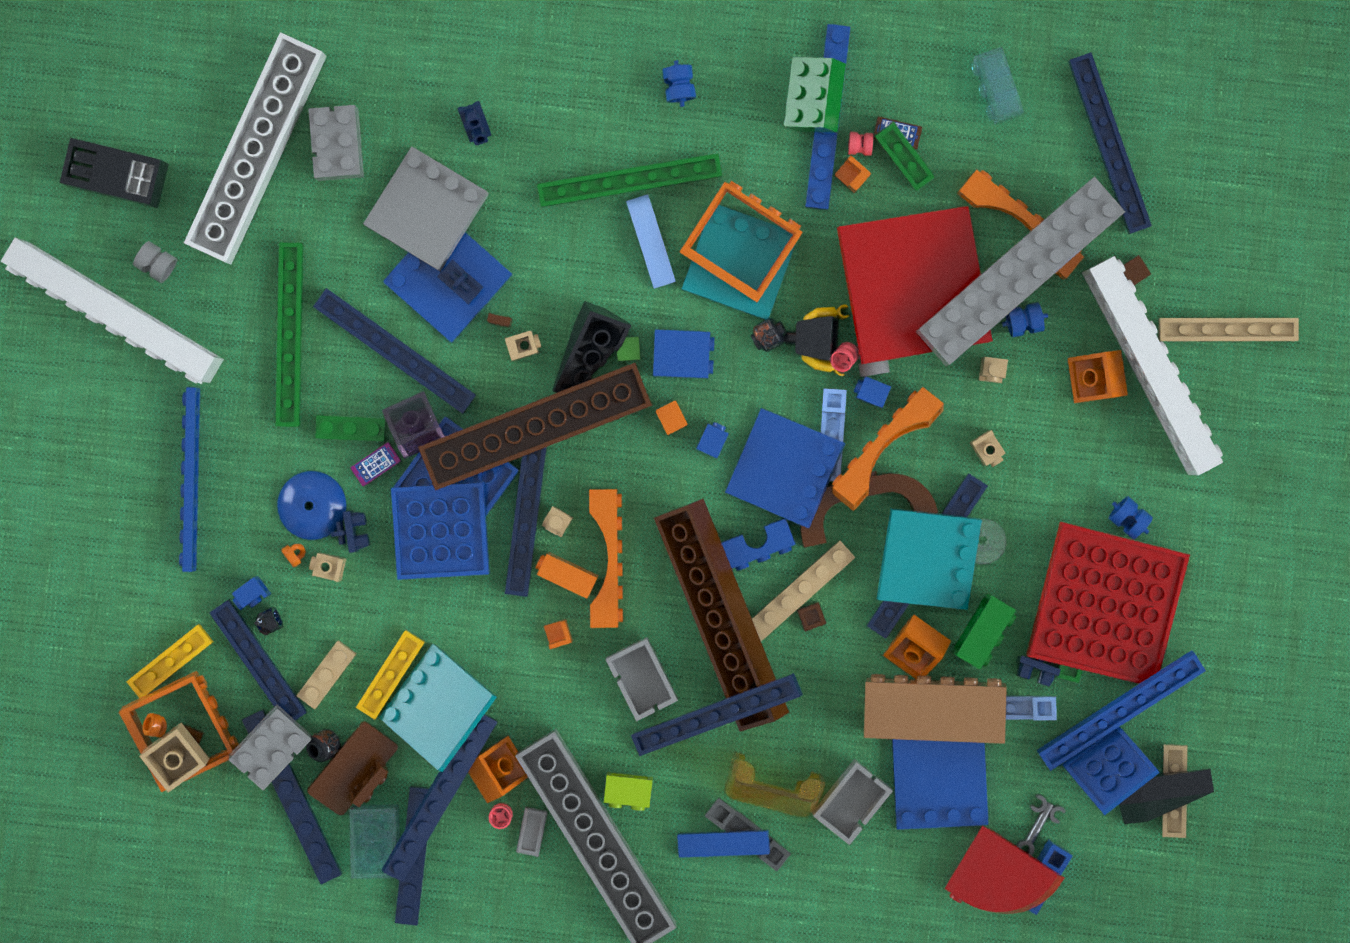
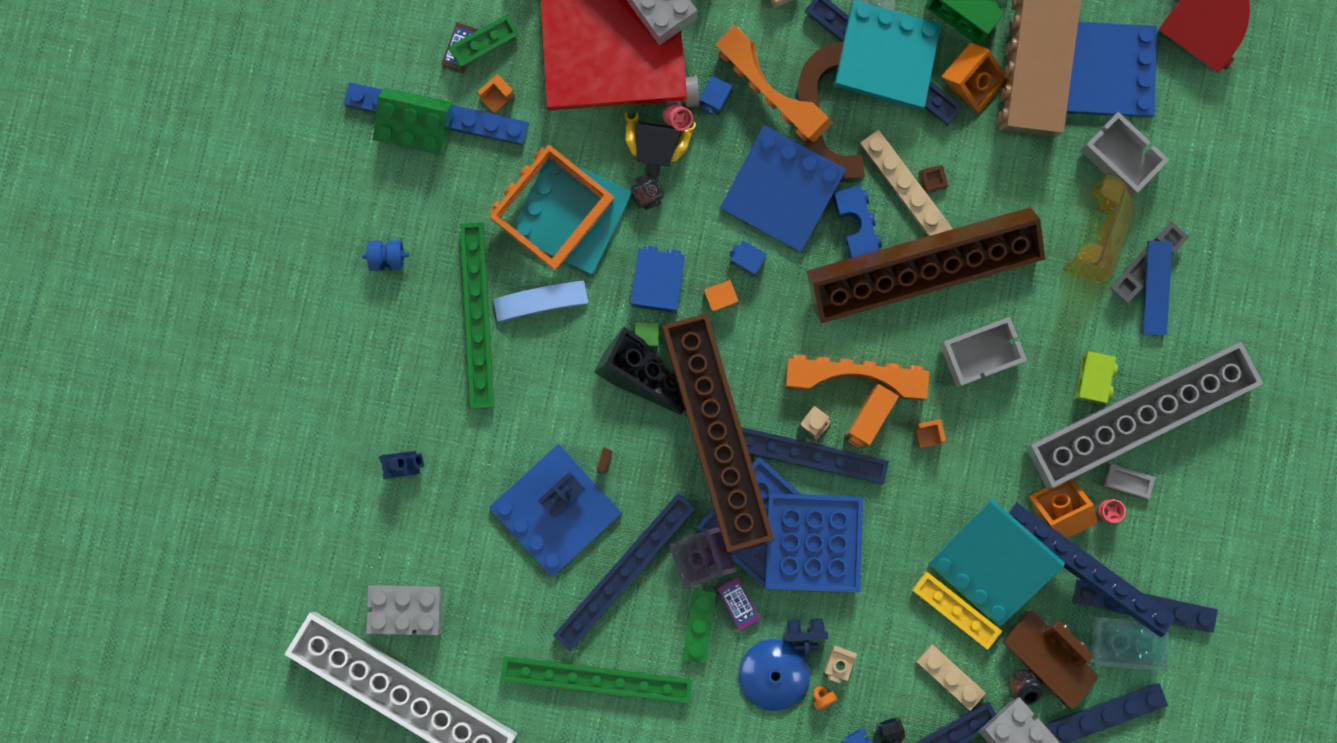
camera: 85 degrees left, 5 degrees down
(426, 208) = (482, 524): light grey plate -> none
(513, 344) = (636, 448): tan brick -> none
(717, 714) = (1027, 277): dark blue plate -> none
(833, 419) = (737, 137): light blue slope -> none
(860, 143) = (466, 83): coral wheel -> none

